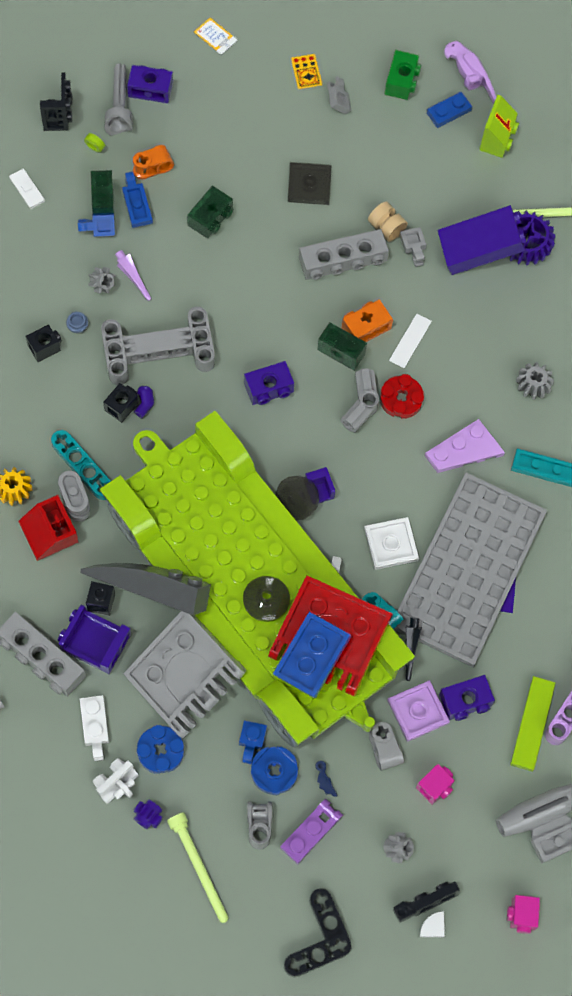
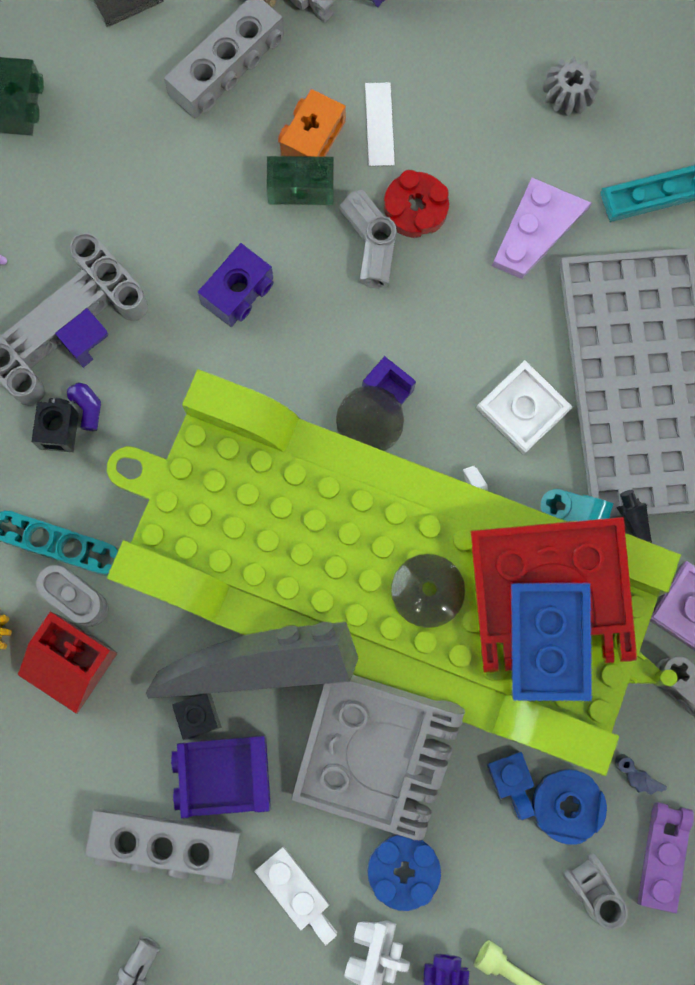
camera: 30 degrees left, 10 degrees up
(165, 362) = (81, 336): none -> dark purple panel

